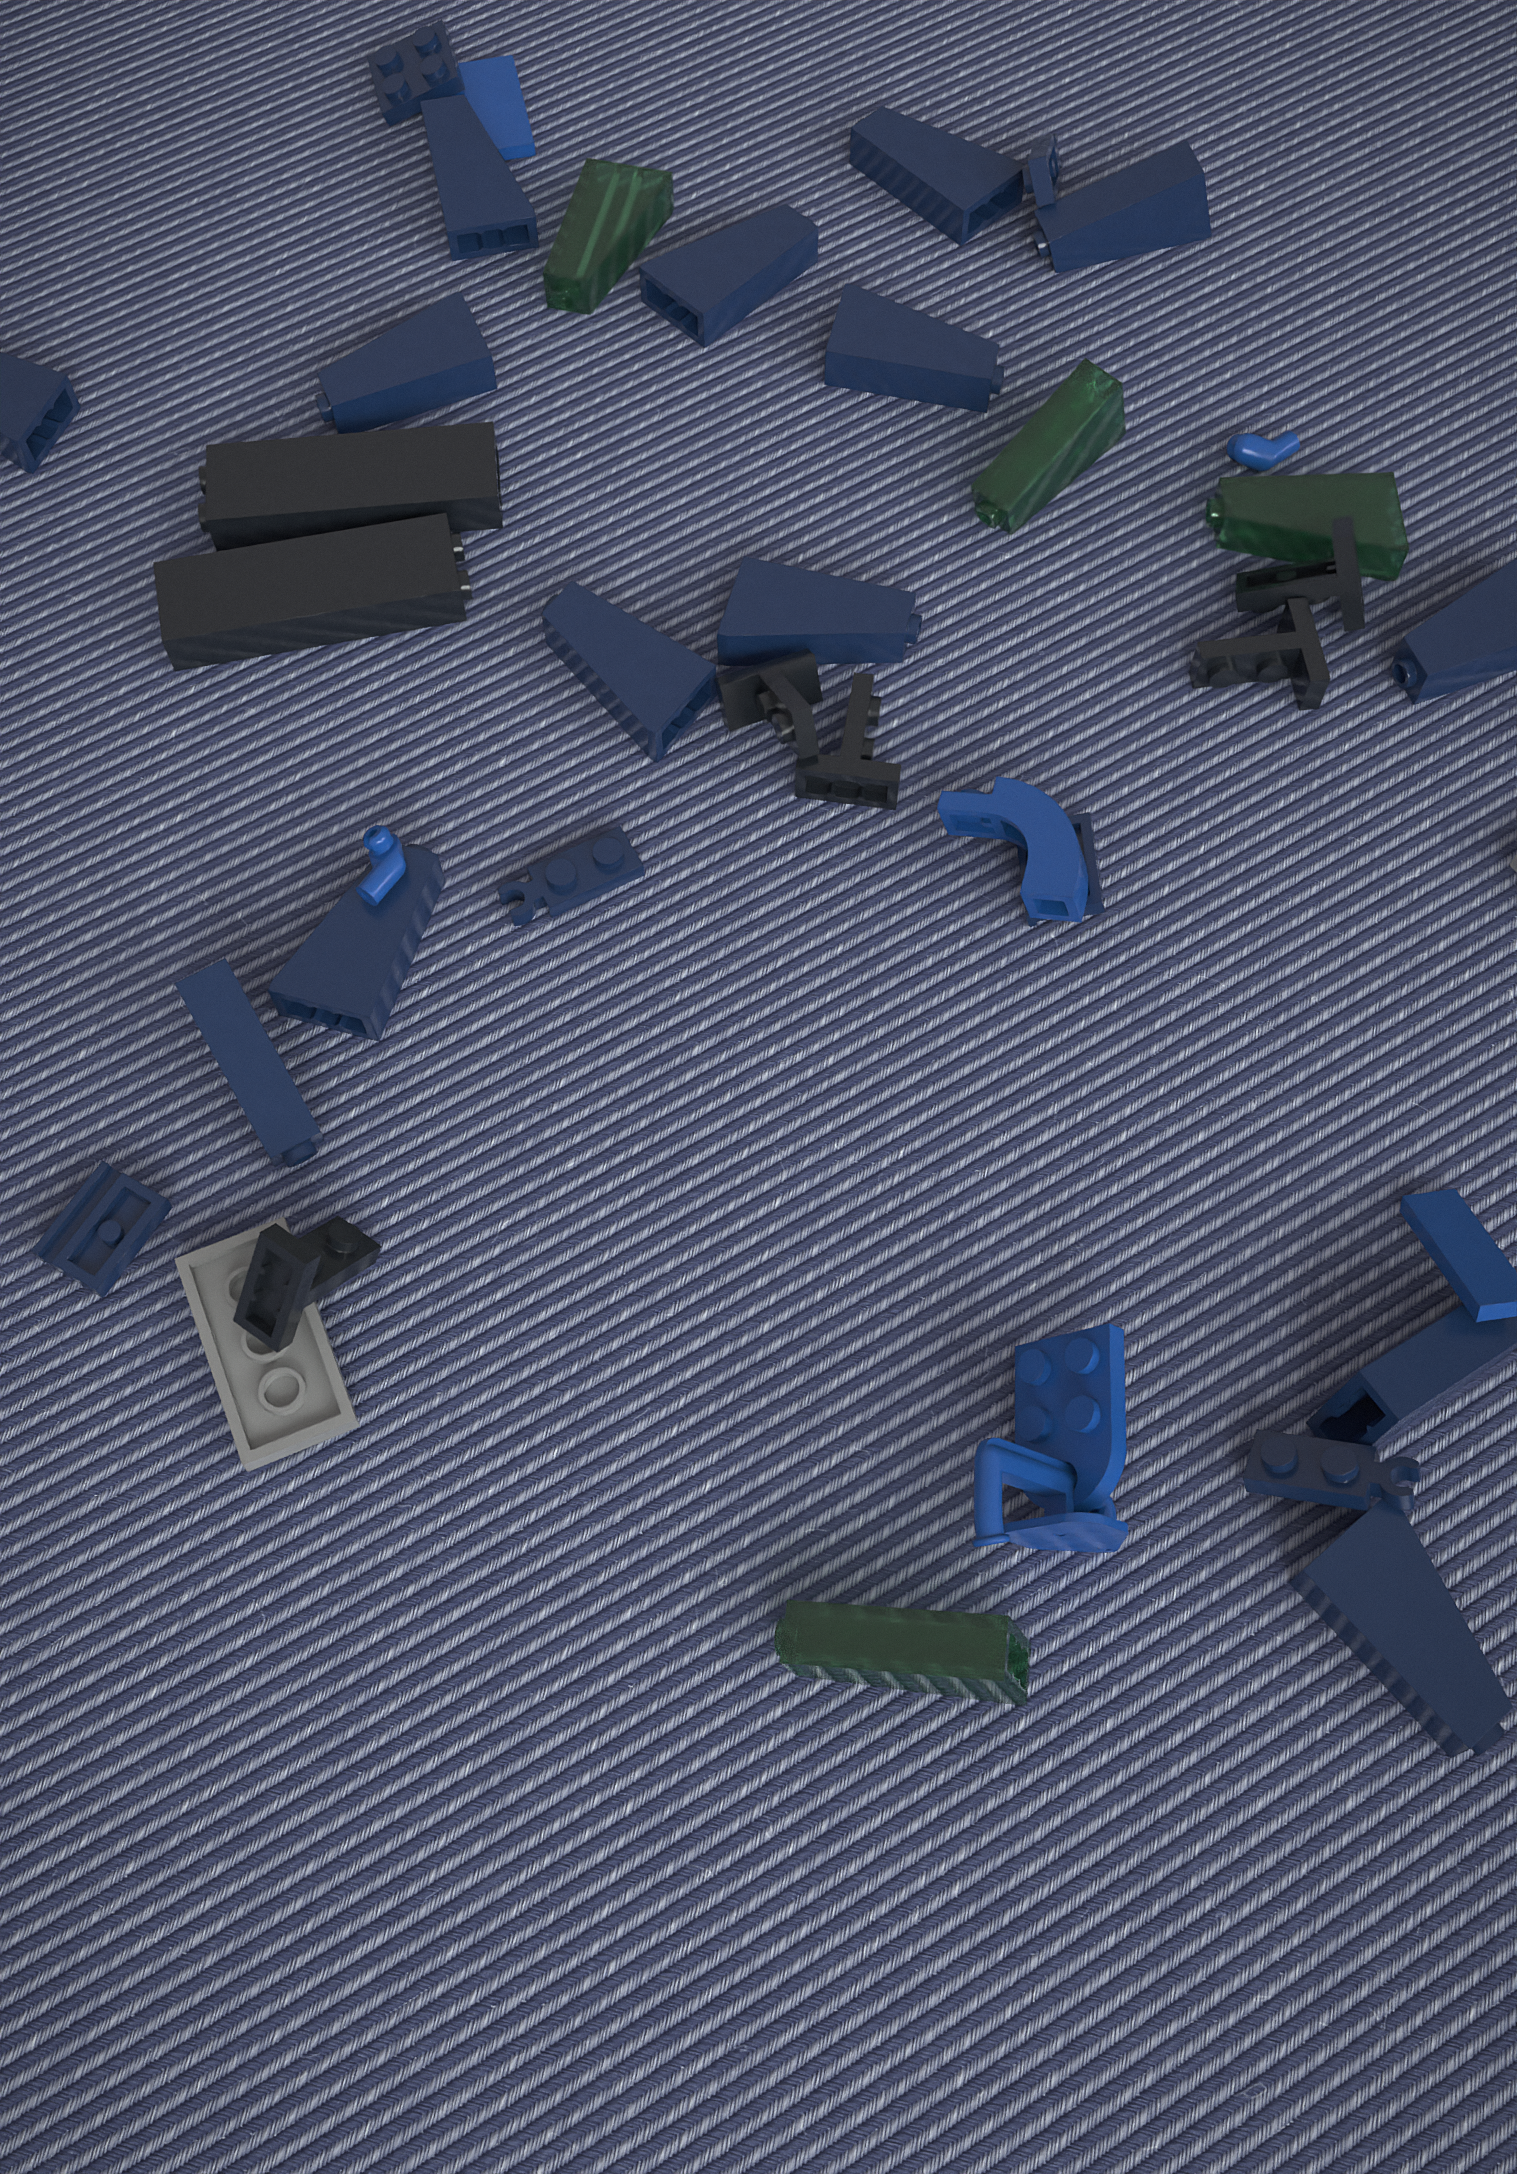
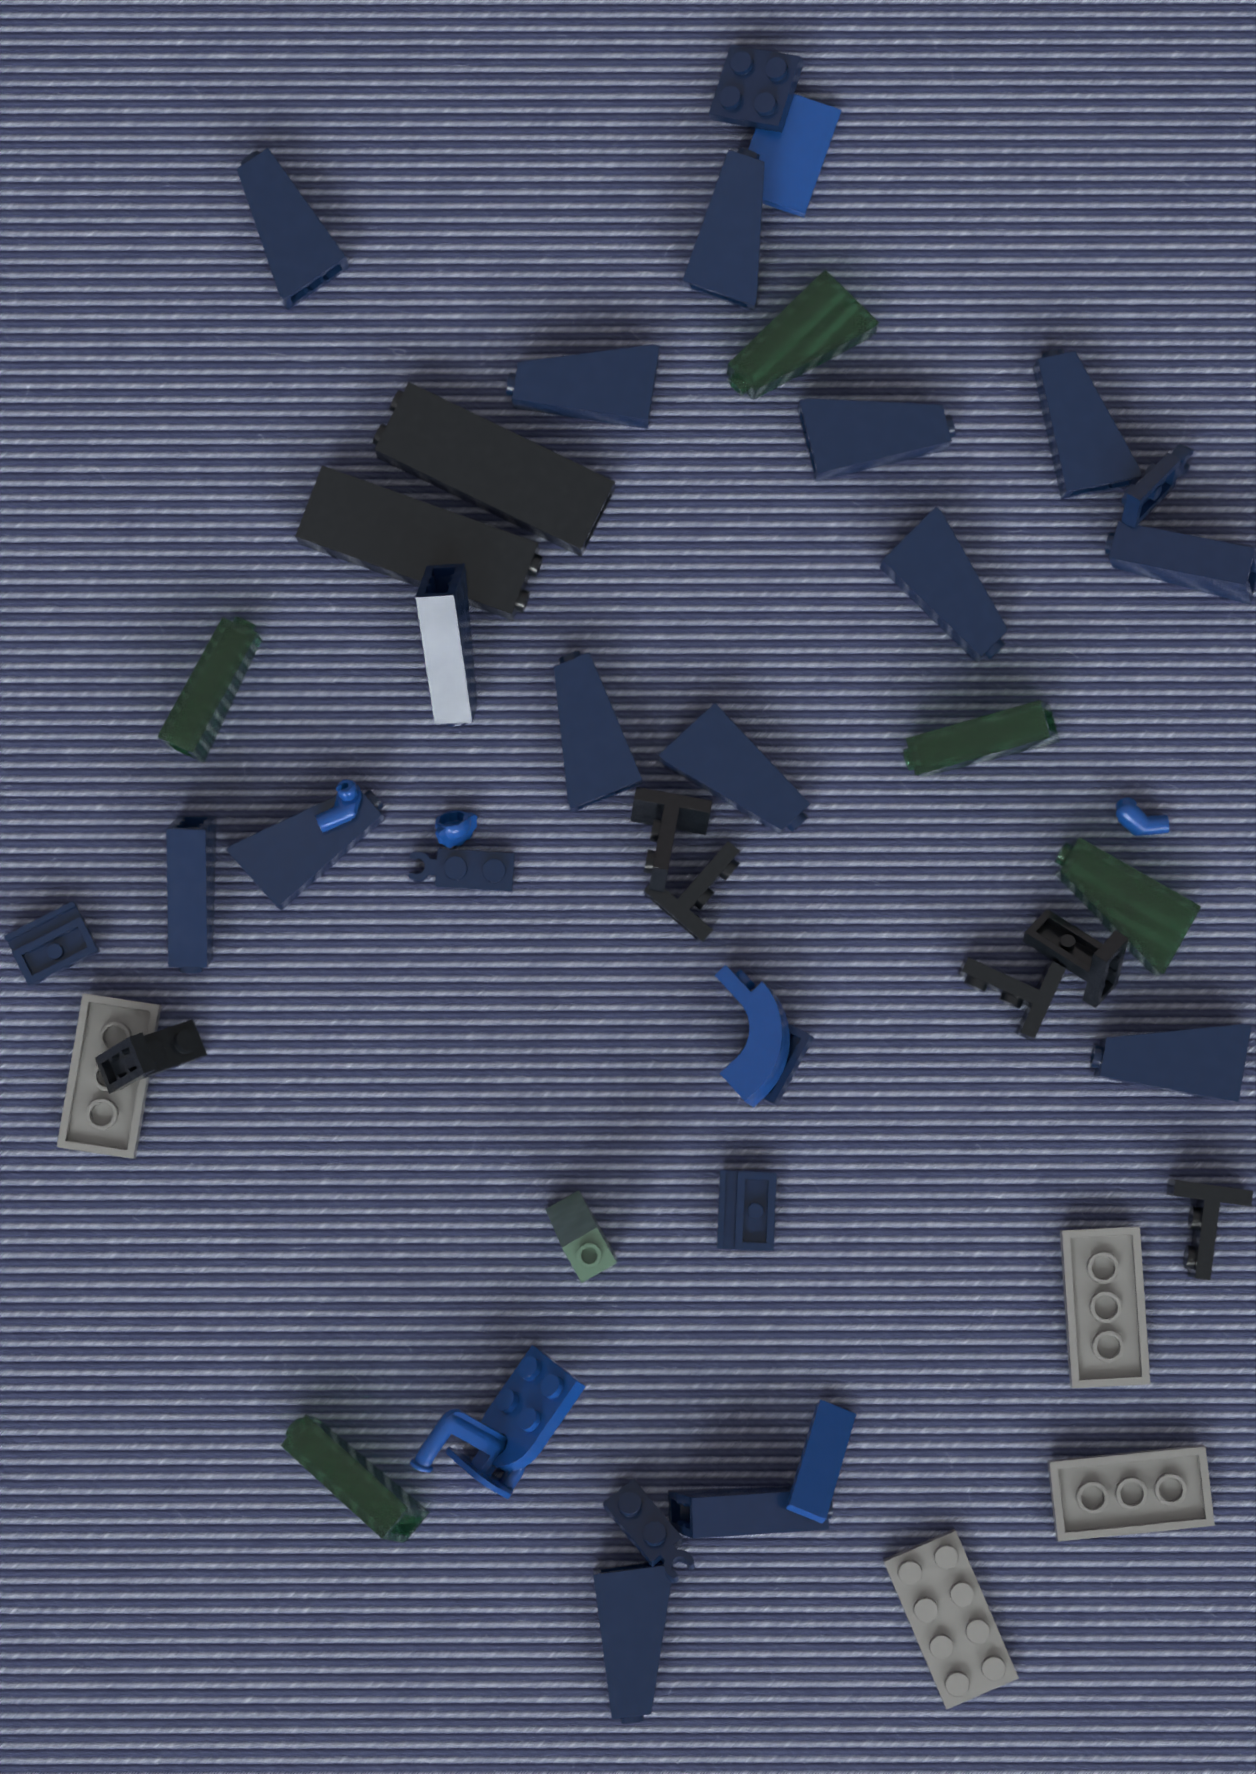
camera: 30 degrees right, 20 degrees up
(150, 850) = (211, 689): none -> clear green slope
(408, 647) = (447, 643): none -> slope
(535, 839) = (455, 827): none -> blue piece
(999, 1156) = (581, 1236): none -> sand green slope
(1156, 1040) = (746, 1210): none -> dark blue plate

